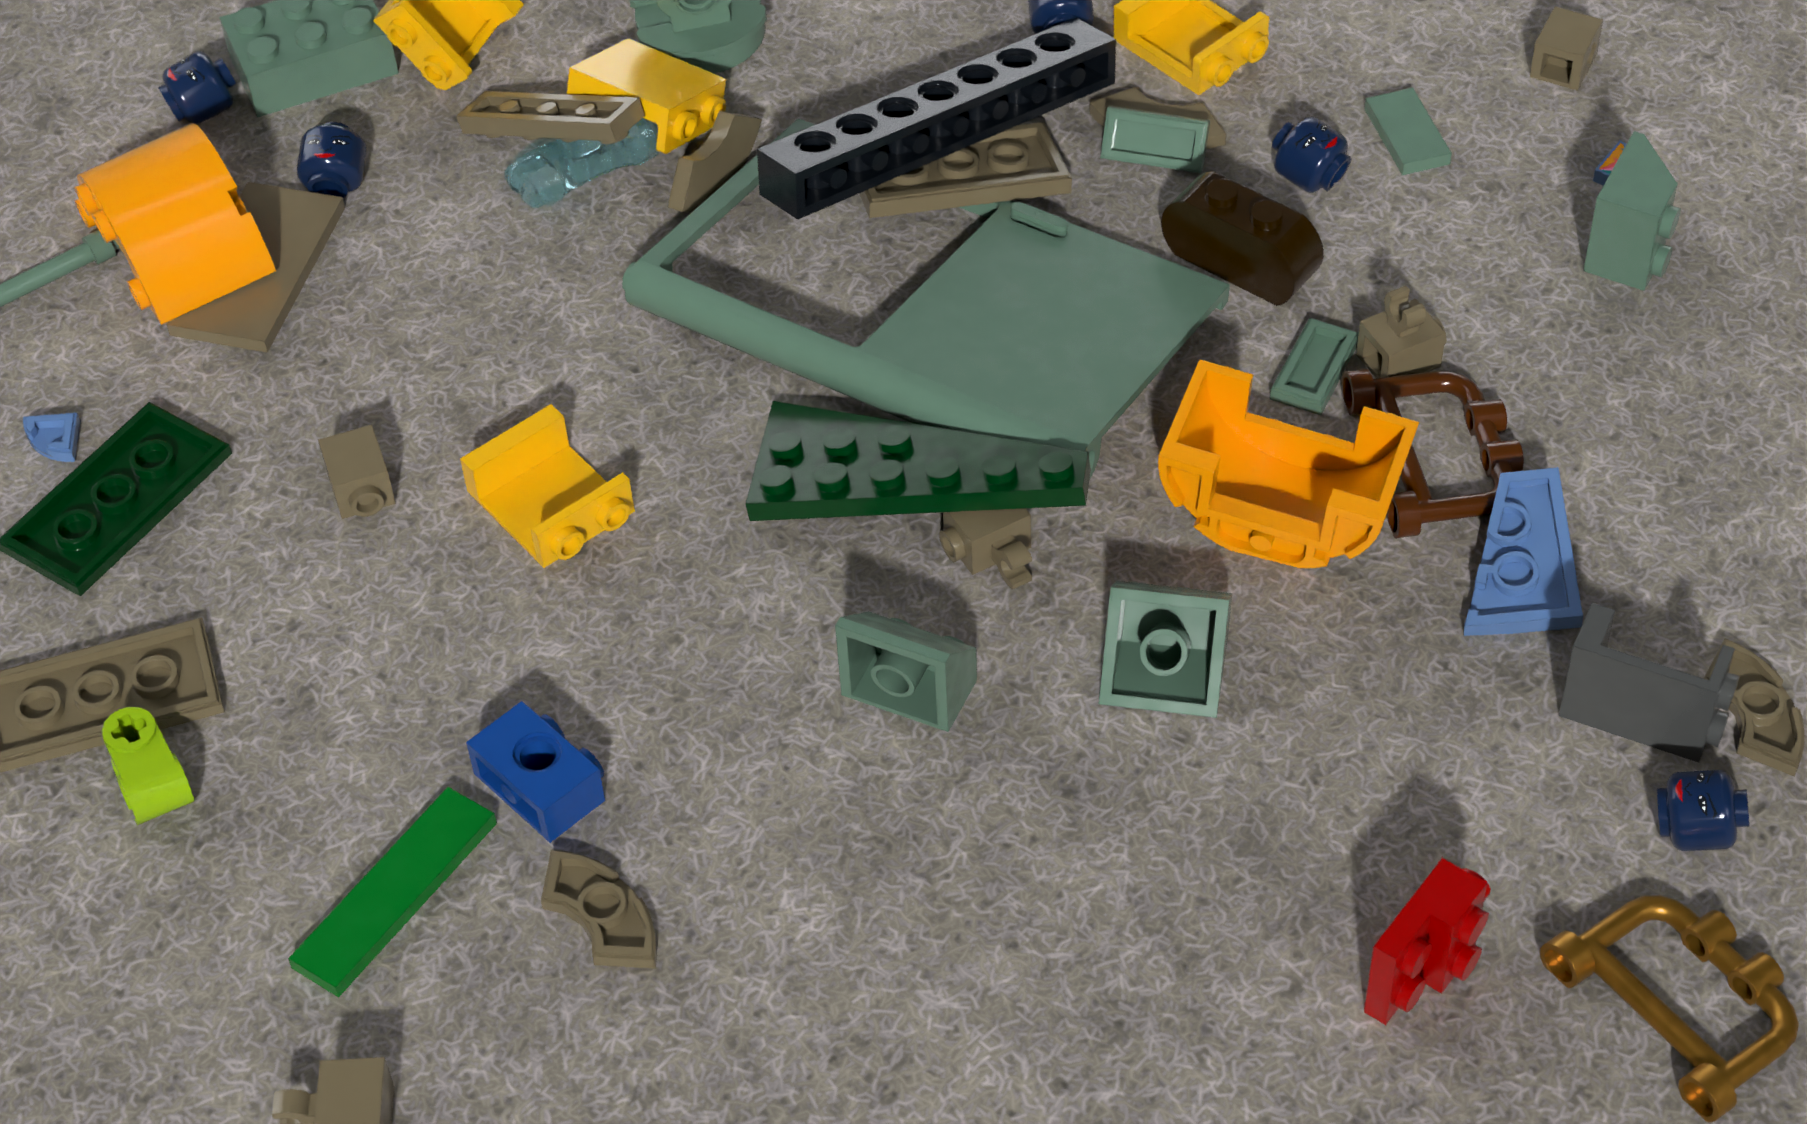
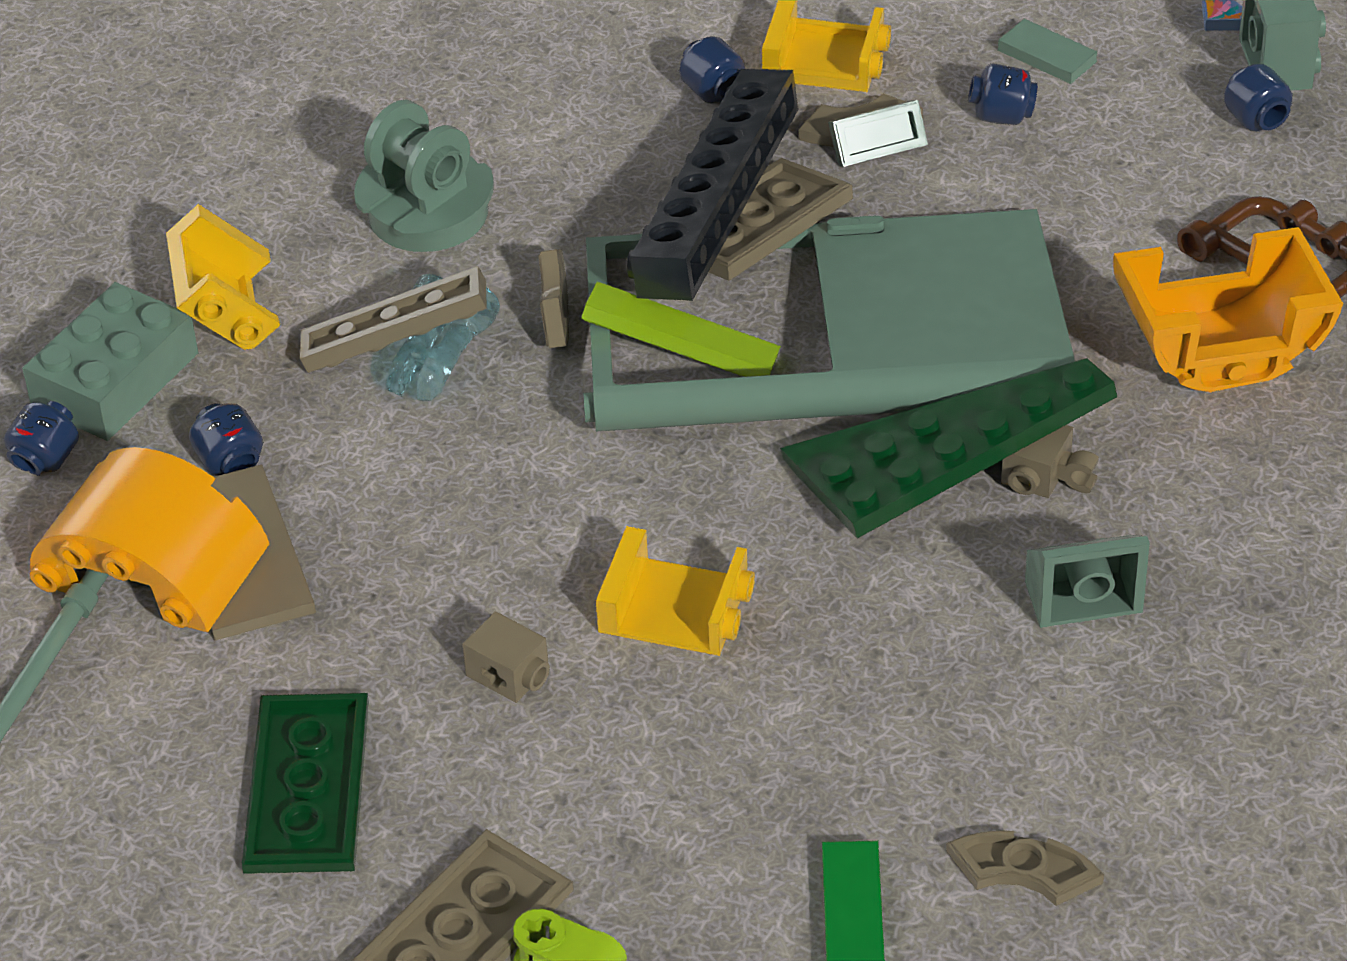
camera: 35 degrees left, 5 degrees down
(54, 435) = (198, 762): medium blue tile -> none
(537, 770) = (883, 792): blue brick -> none
(671, 91) = (434, 256): yellow panel -> none
(782, 248) = (679, 332): none -> lime tile
(1165, 648) = (1246, 472): sand green slope -> none
(1242, 237) = (1020, 169): dark brown brick -> none
(1314, 366) = (1144, 228): sand green tile -> none
(1401, 338) = (1197, 189): dark tan brick -> none
(1560, 273) = (1258, 98): none -> dark blue head

